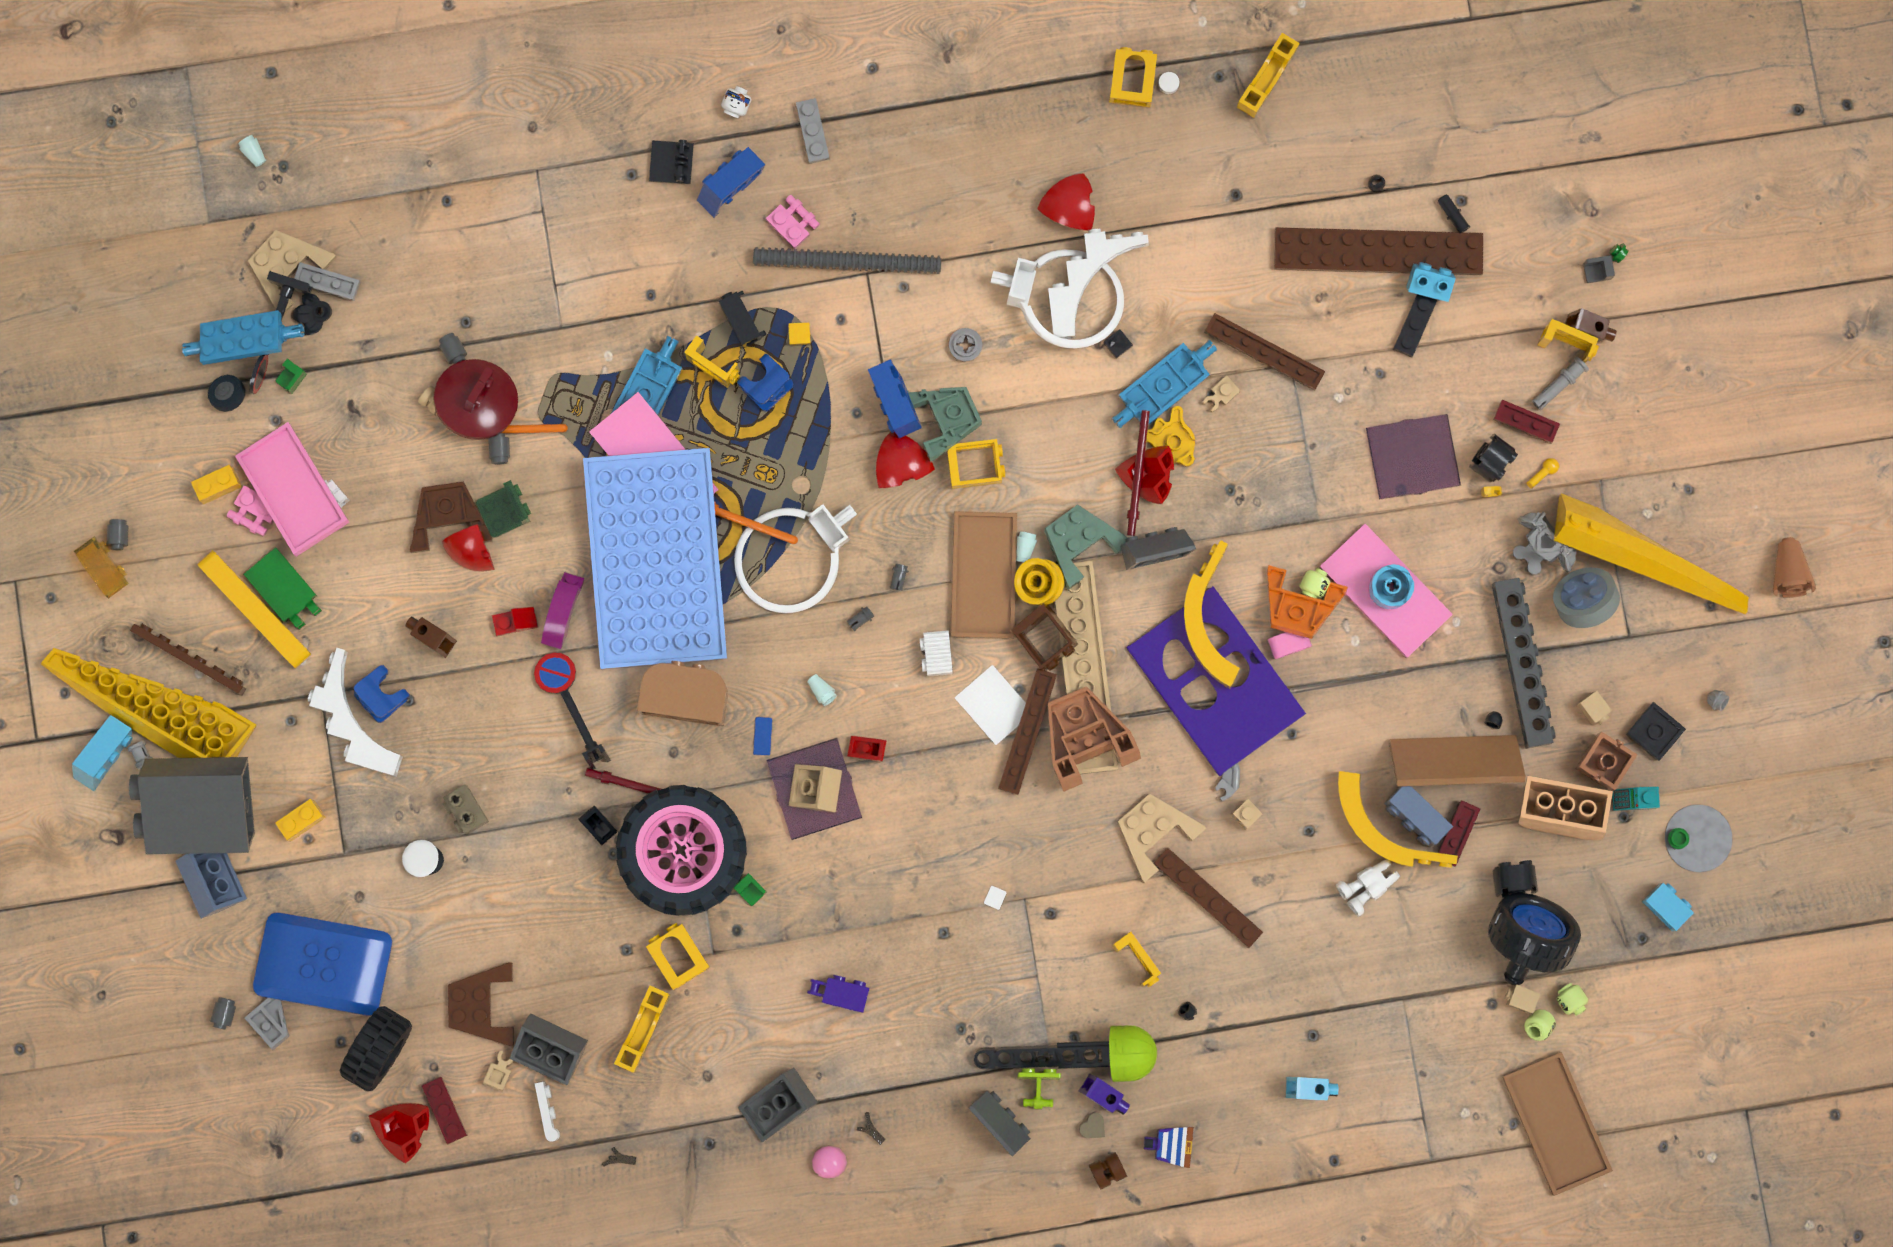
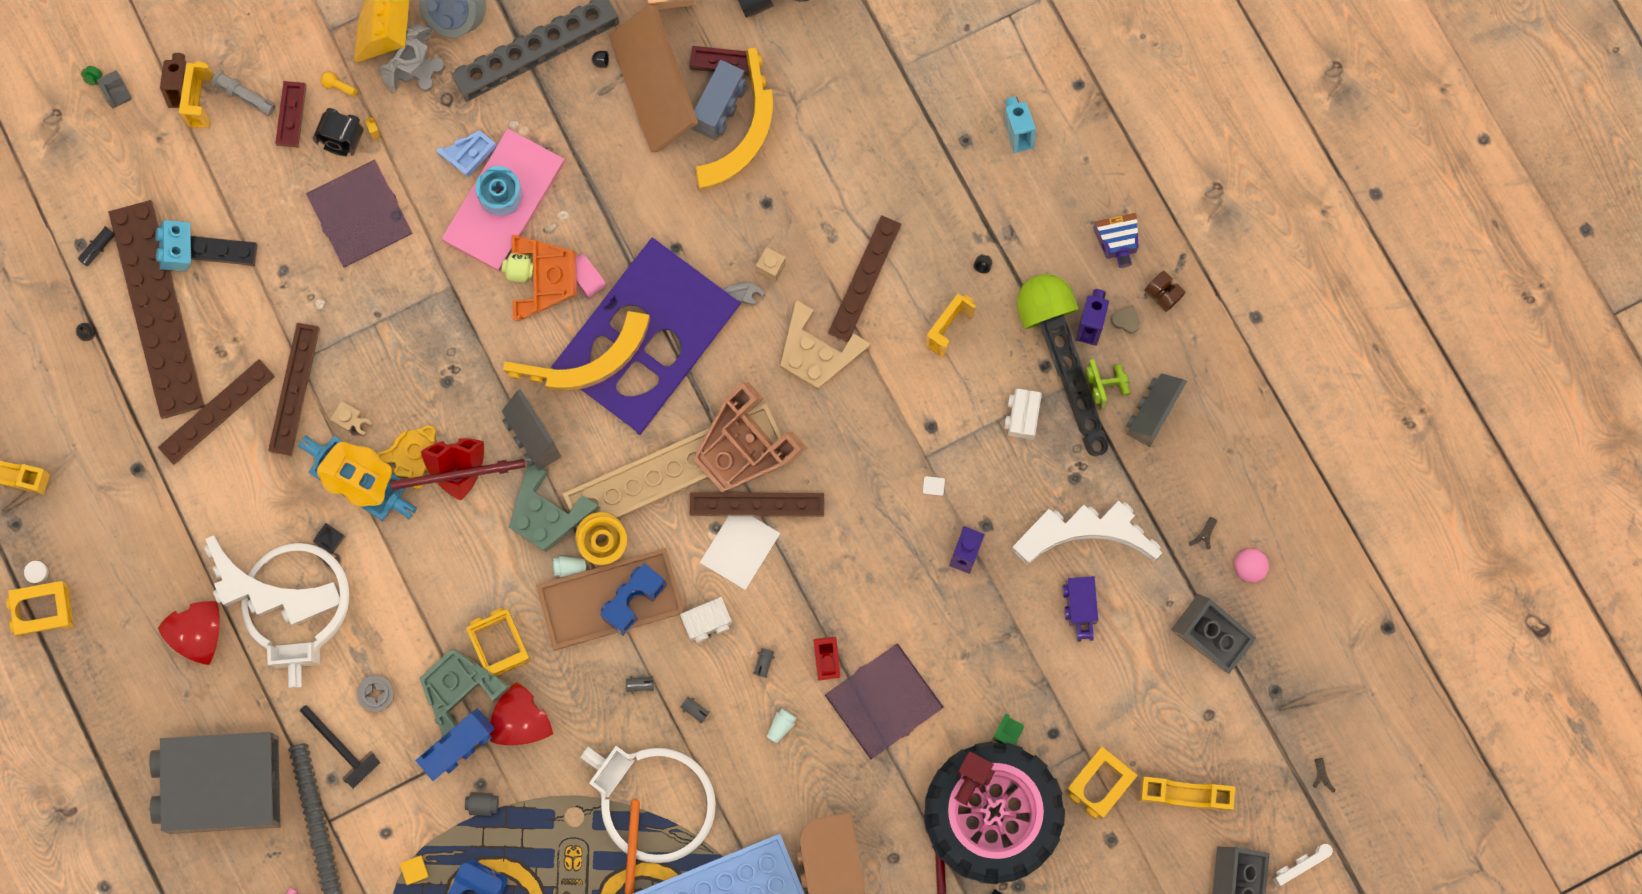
camera: 105 degrees left, 5 degrees down
(715, 838) = (975, 773): none -> dark red brick
(762, 736) = (847, 771): blue sticker -> none
(815, 788) = (884, 698): tan slope -> none
(837, 408) = (482, 804): none -> dark grey brick
(882, 692) = (763, 663): none -> dark grey pin
(903, 312) = (360, 768): none -> black piece
(905, 1048) = (1085, 524): none -> white arch
(926, 907) = (966, 549): none -> dark purple torso
(928, 186) = (216, 783): none -> dark grey brick
(969, 577) = (642, 583): none -> blue arch
(1031, 622) = (645, 535): reddish brown window -> none
(1033, 1000) = (1024, 413): none -> white brick
(1155, 374) = (366, 462): none -> yellow piece
(1265, 278) = (216, 412): none -> reddish brown plate
(1372, 880) = (798, 124): white piece -> none
(1440, 571) = (468, 152): none -> light blue wing

